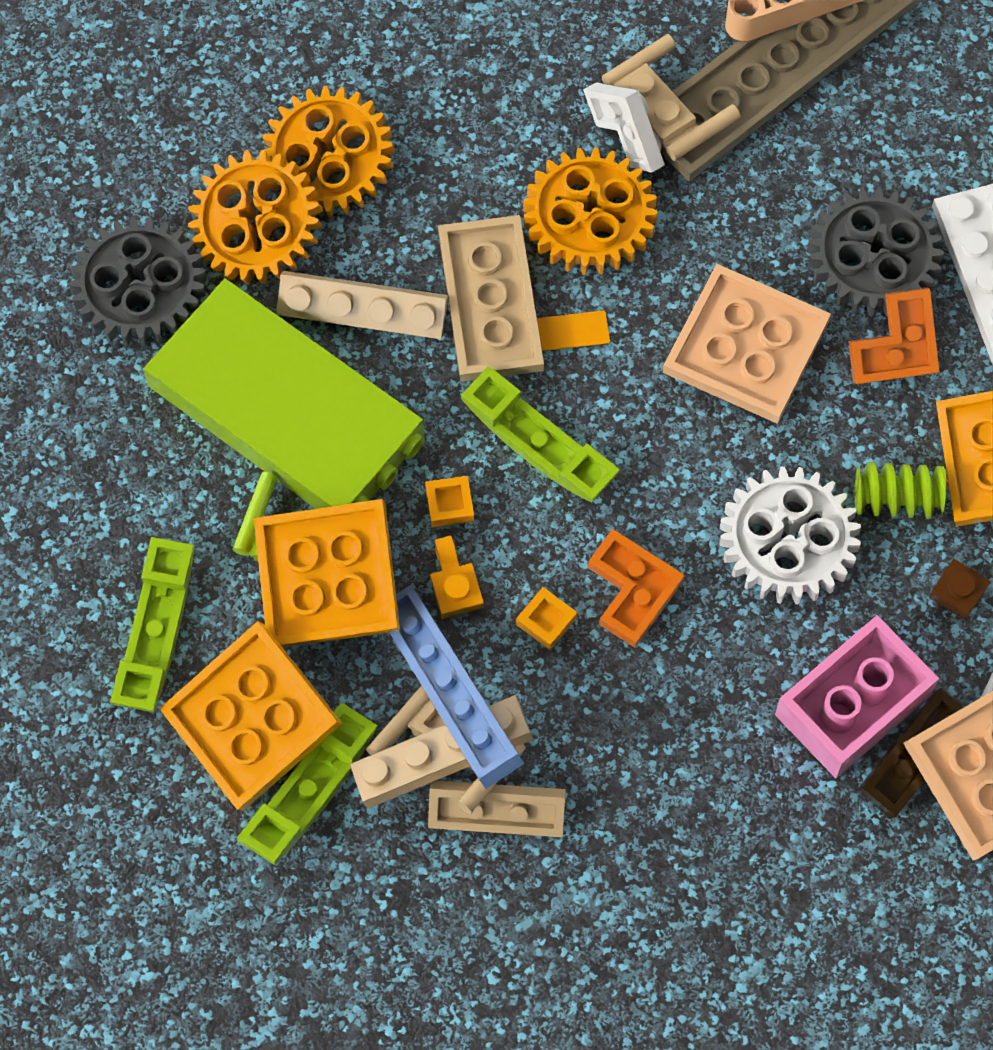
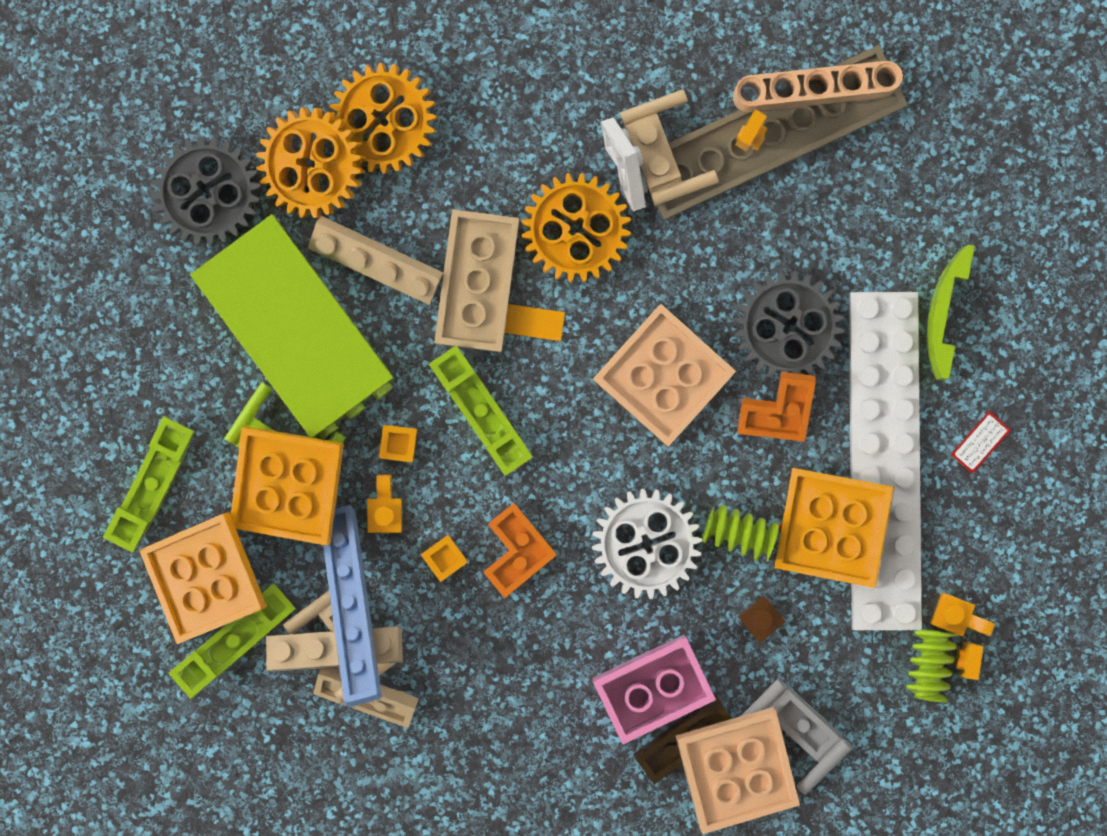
camera: 15 degrees right, 20 degrees up
(763, 45) = (753, 132): none -> light orange plate

